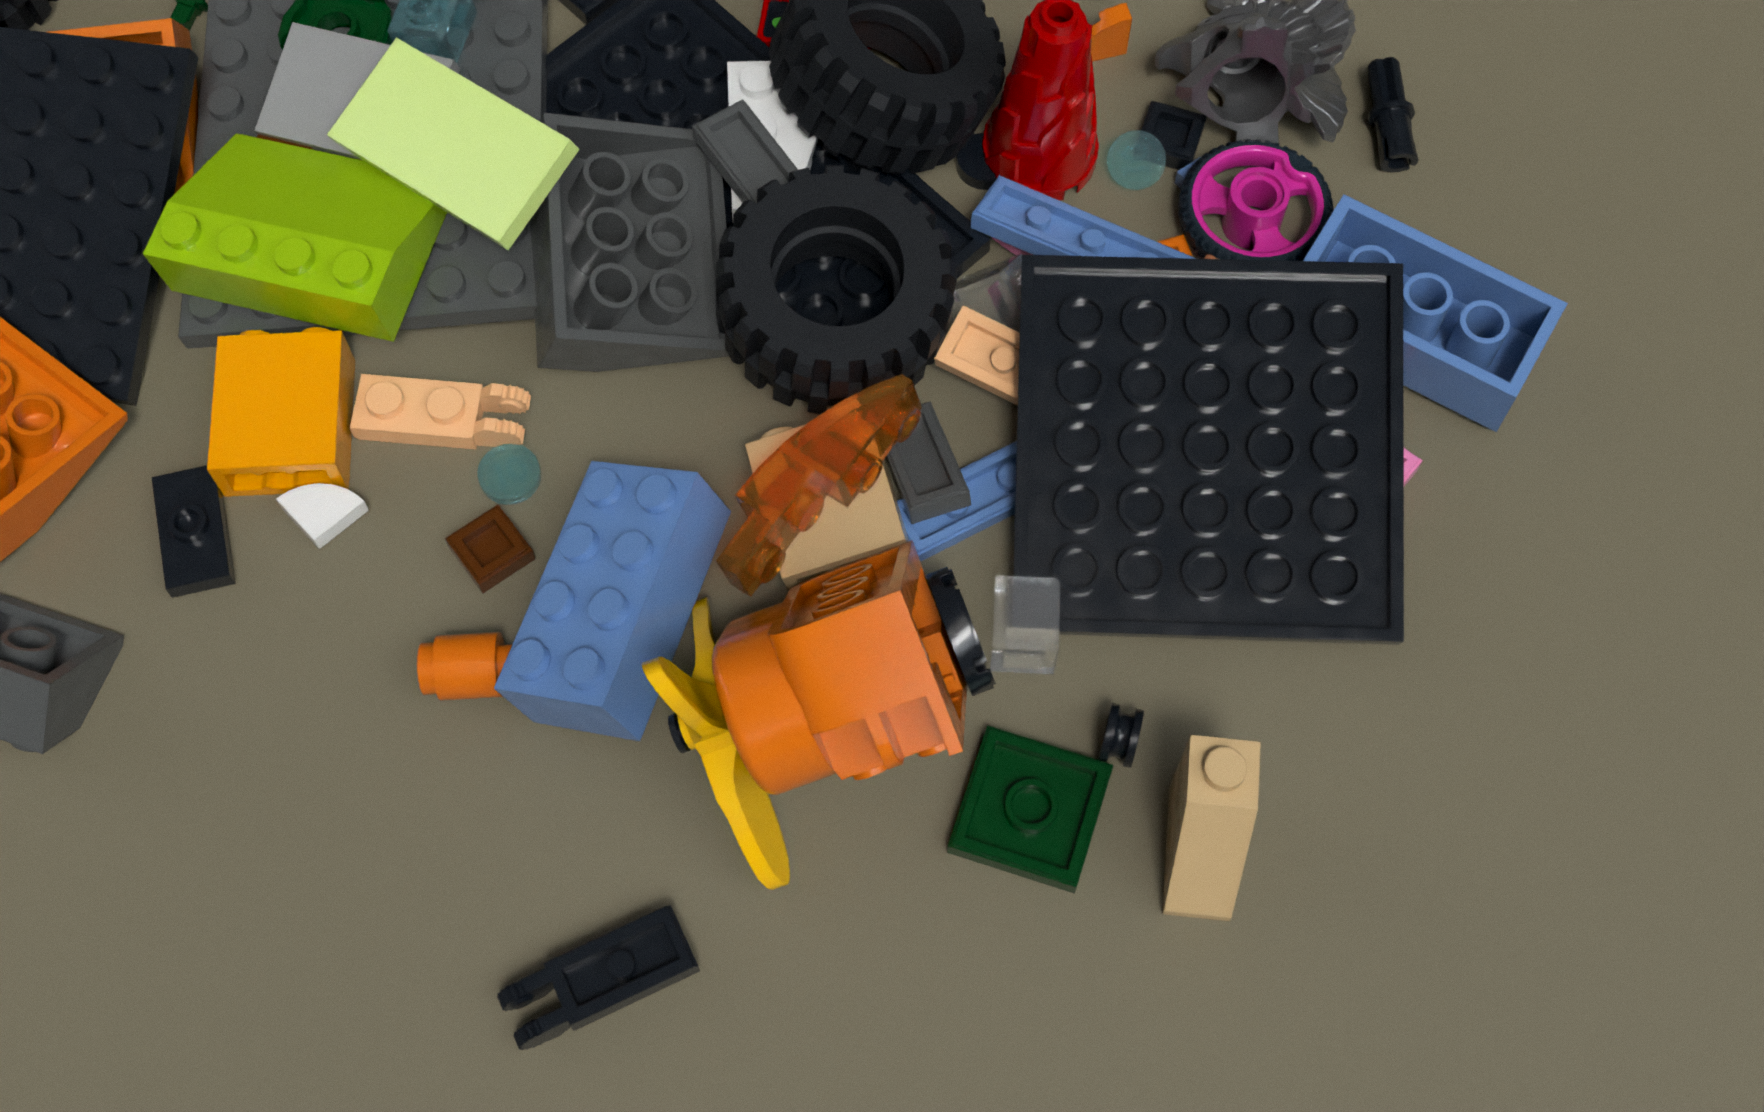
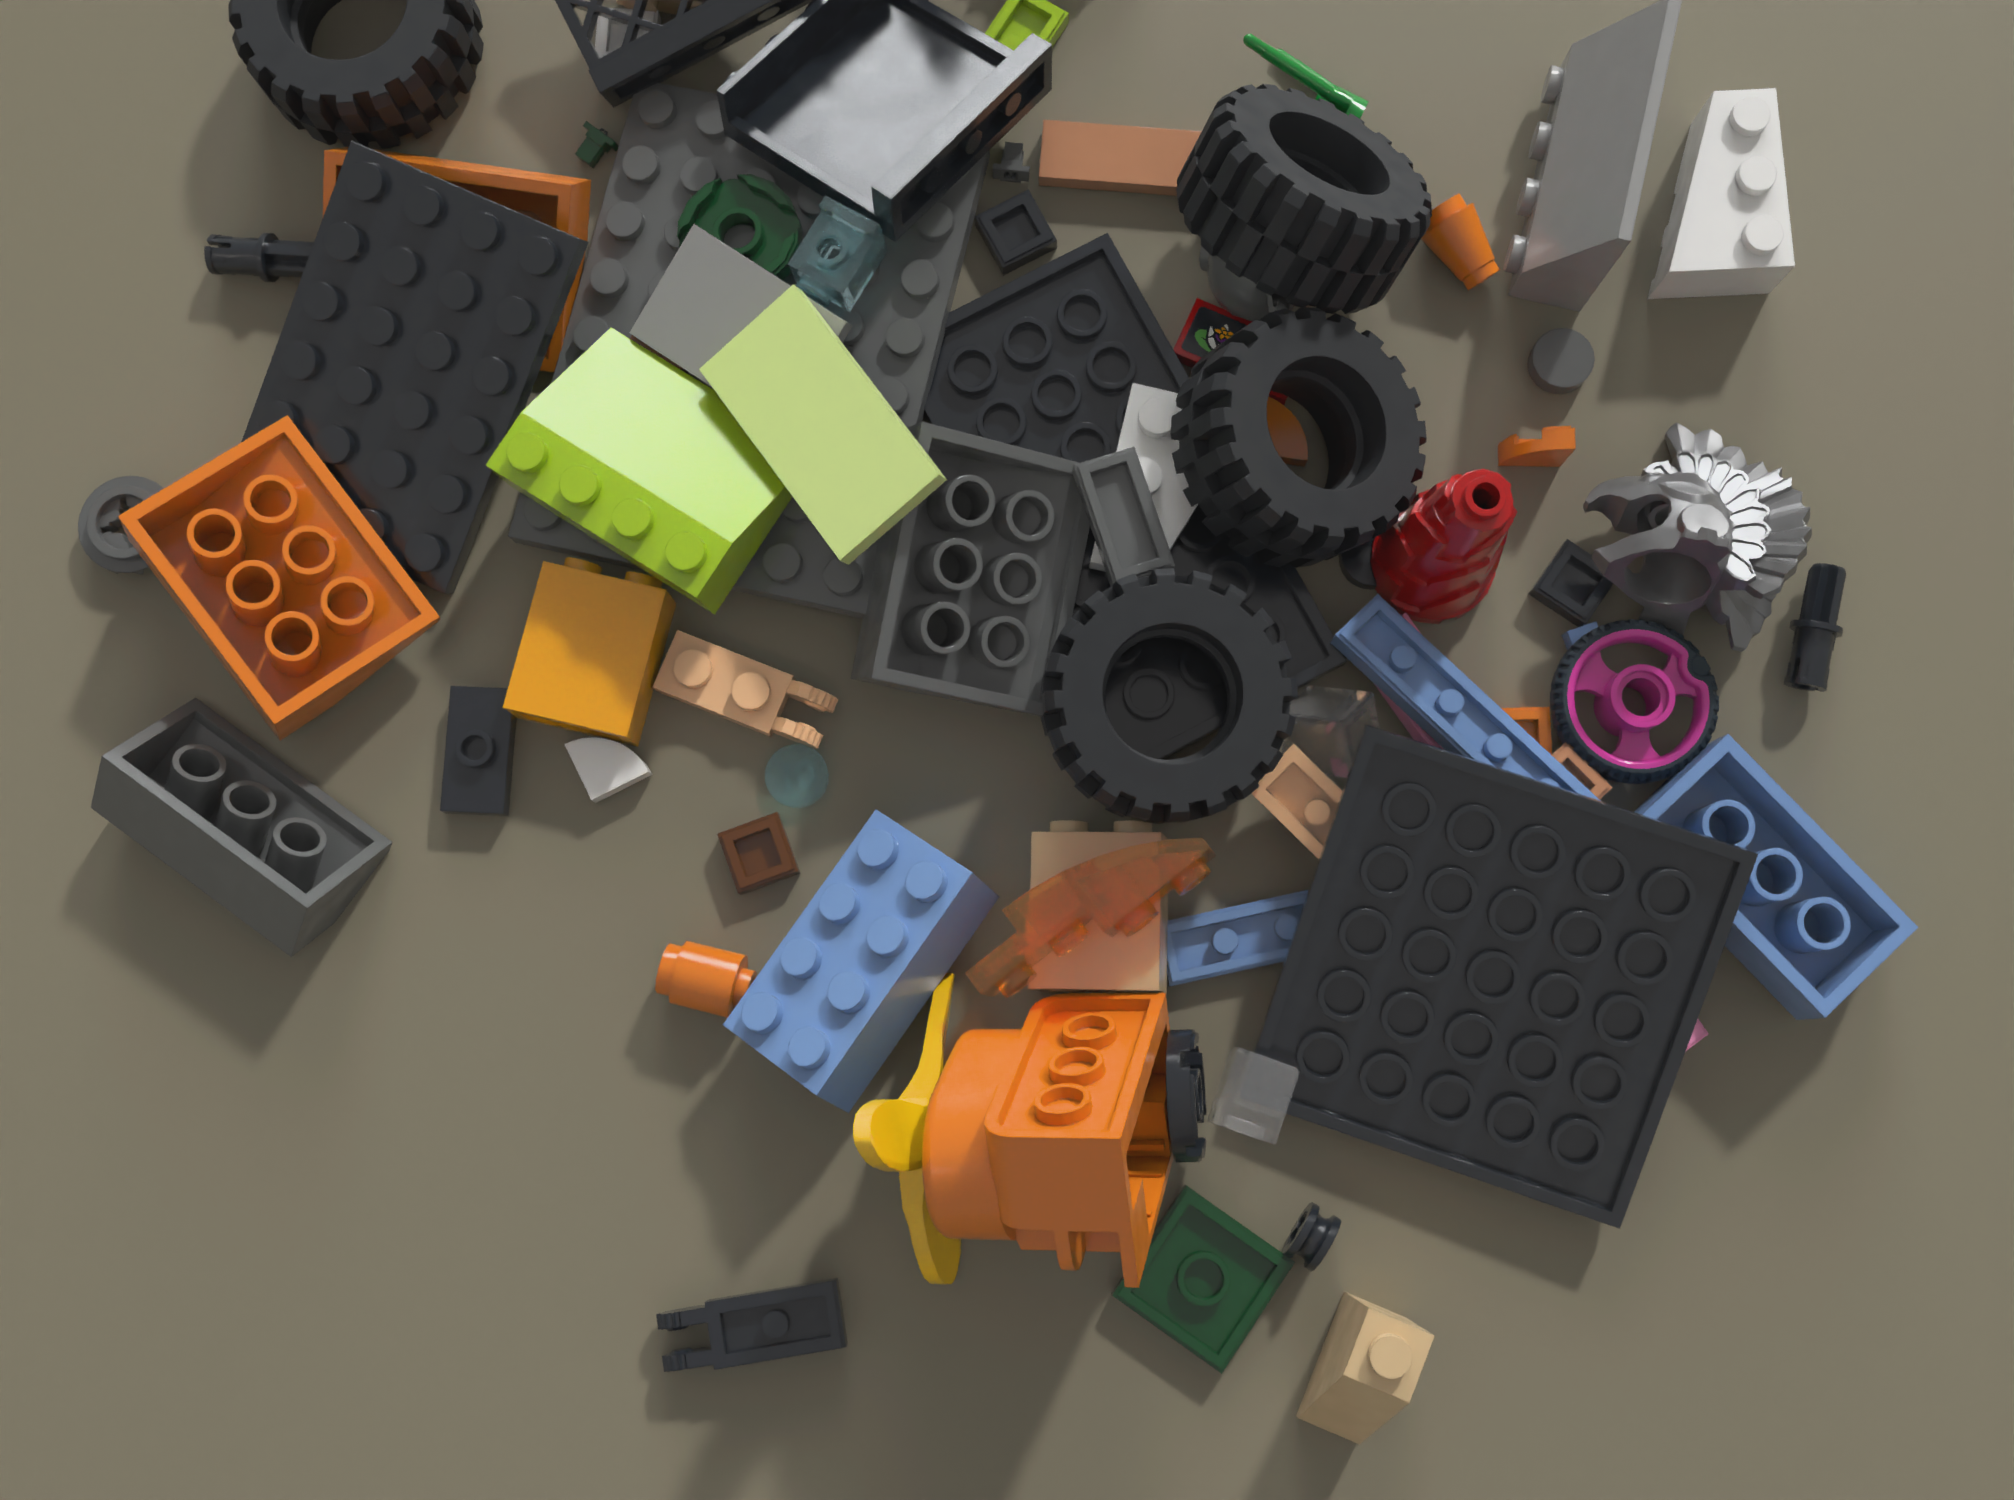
camera: 20 degrees right, 15 degrees up
(927, 471) = (1208, 914): dark grey tile -> none
(1136, 160) = (1528, 606): clear light blue piece -> none

